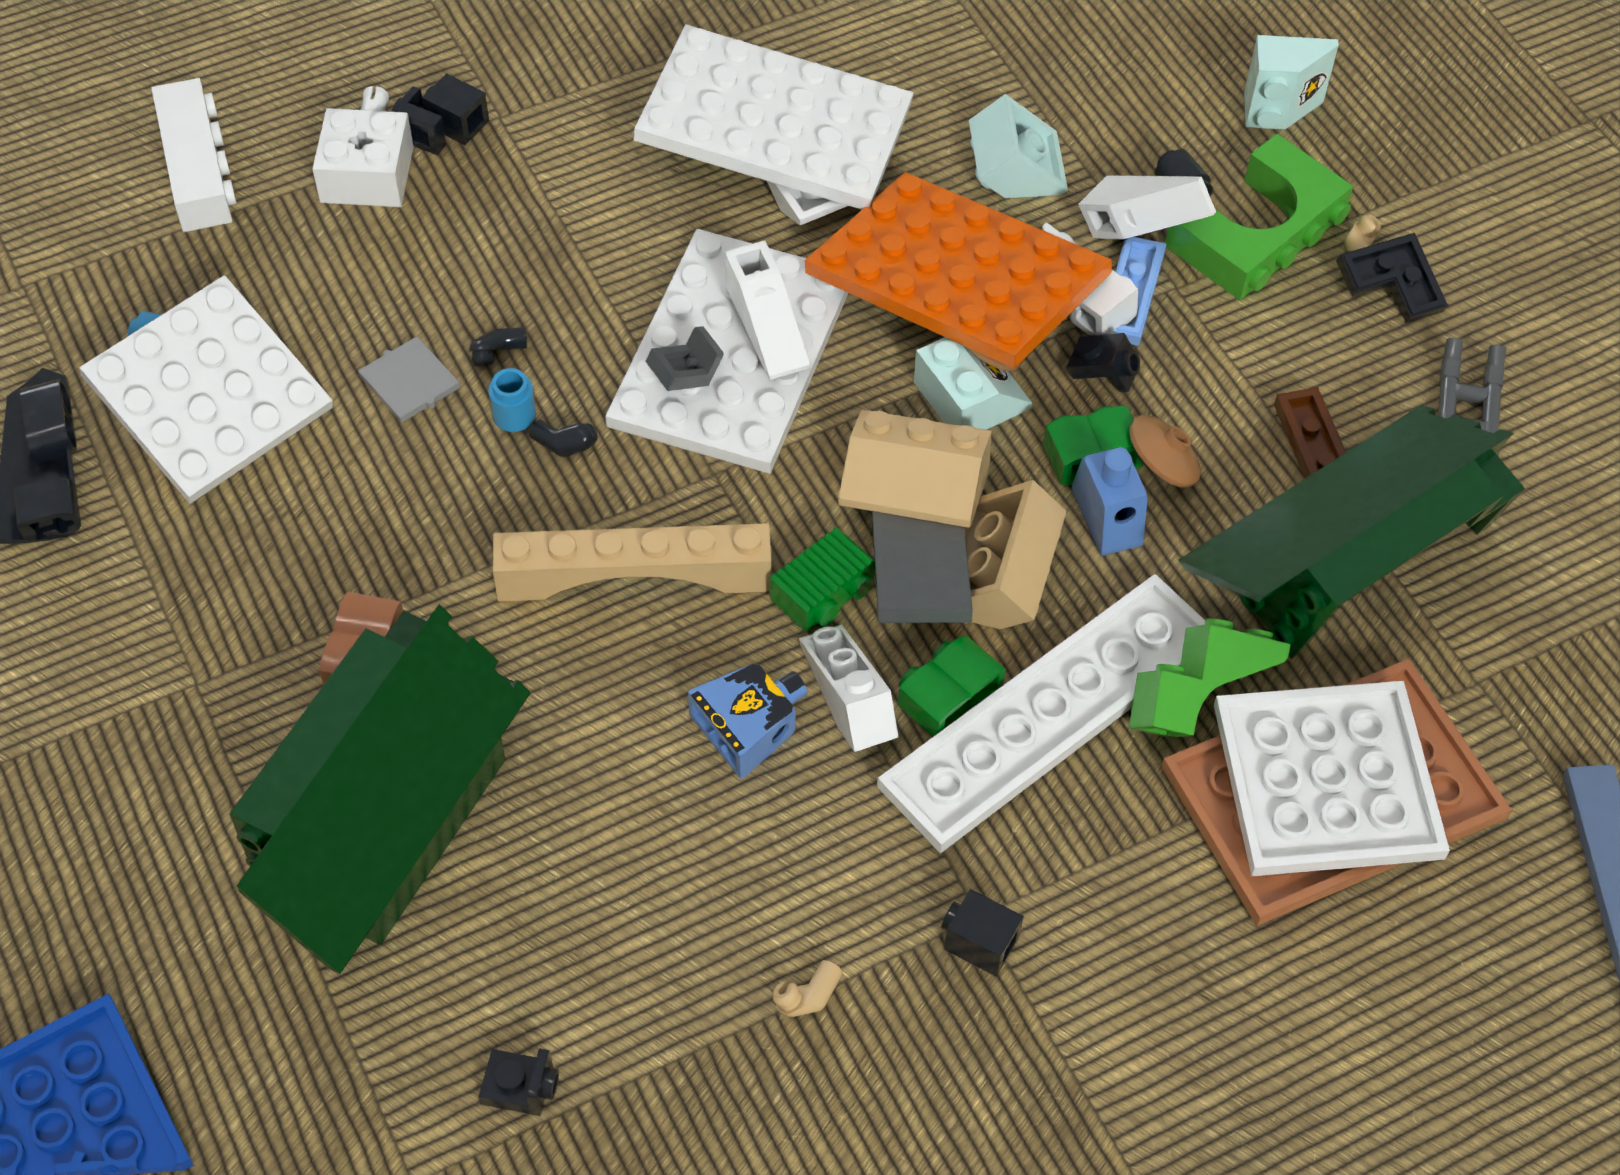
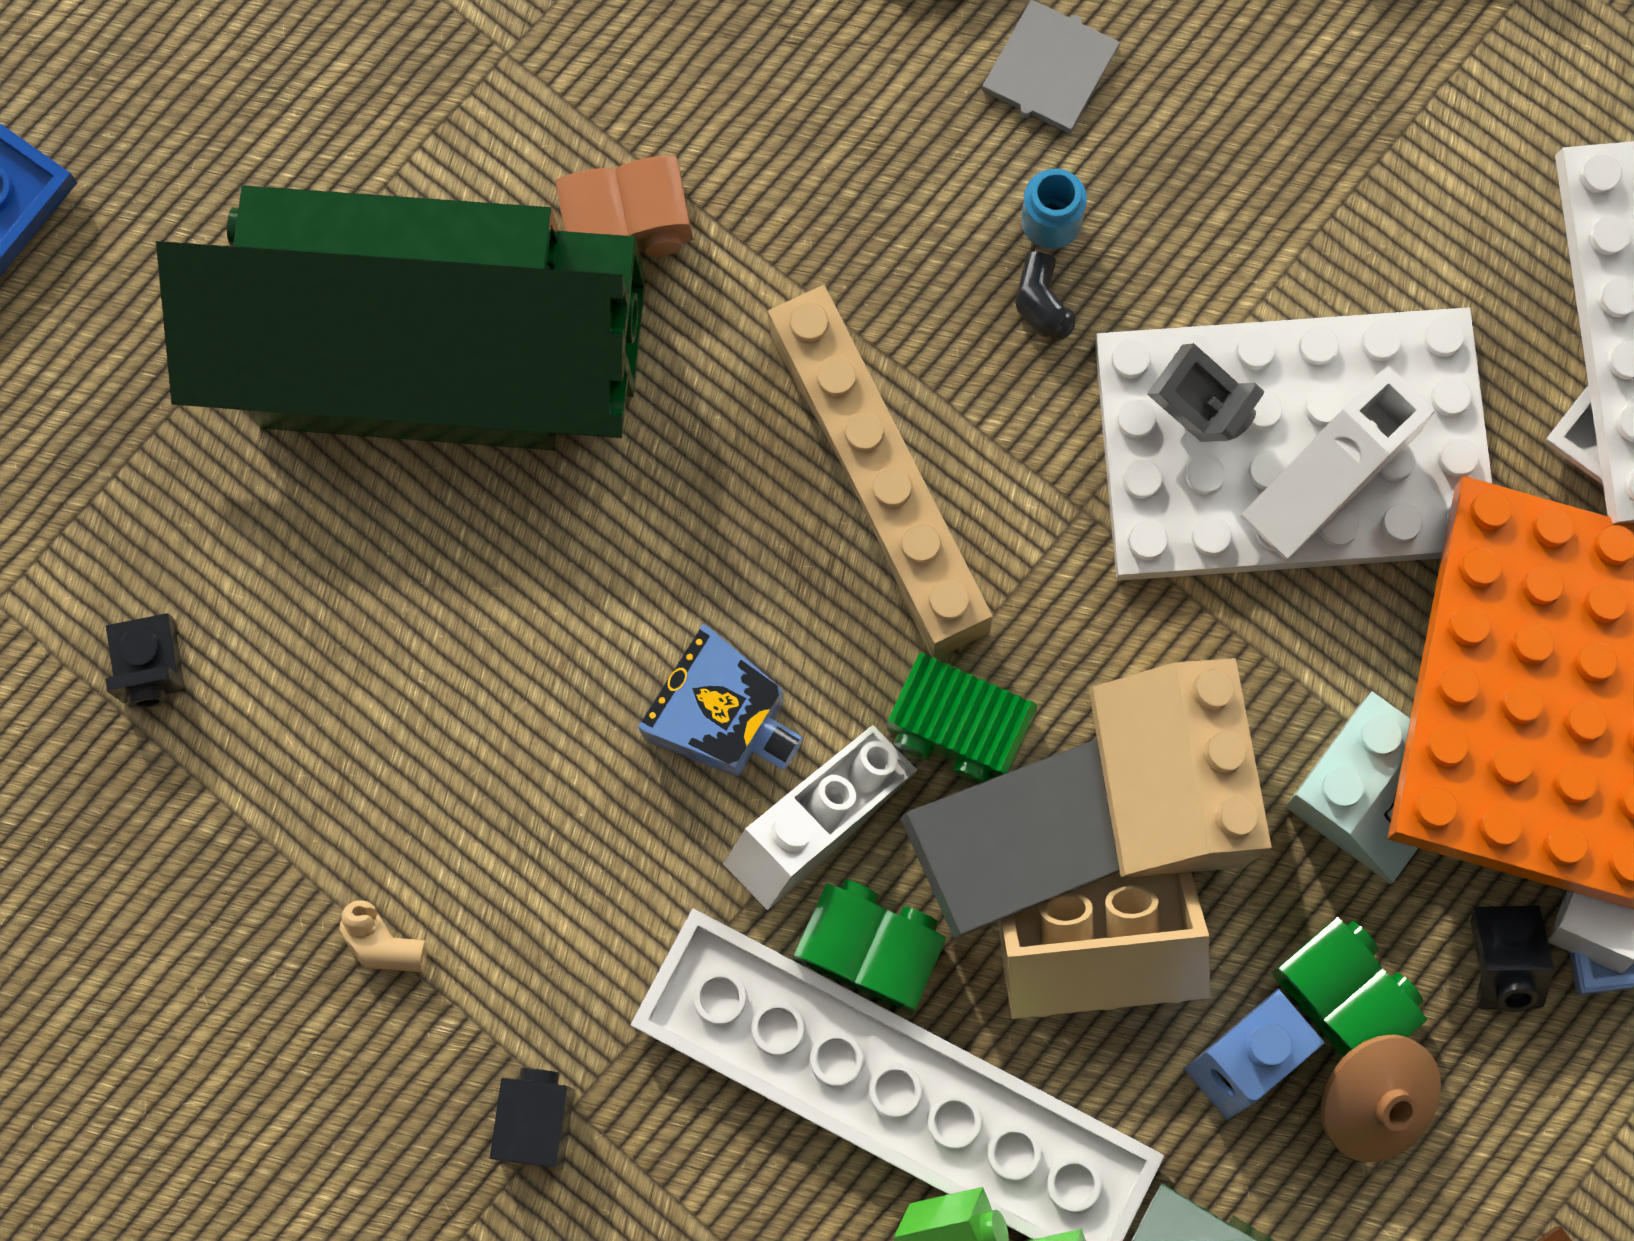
camera: 75 degrees right, 20 degrees up
(494, 340) = (1154, 138): black arm -> none

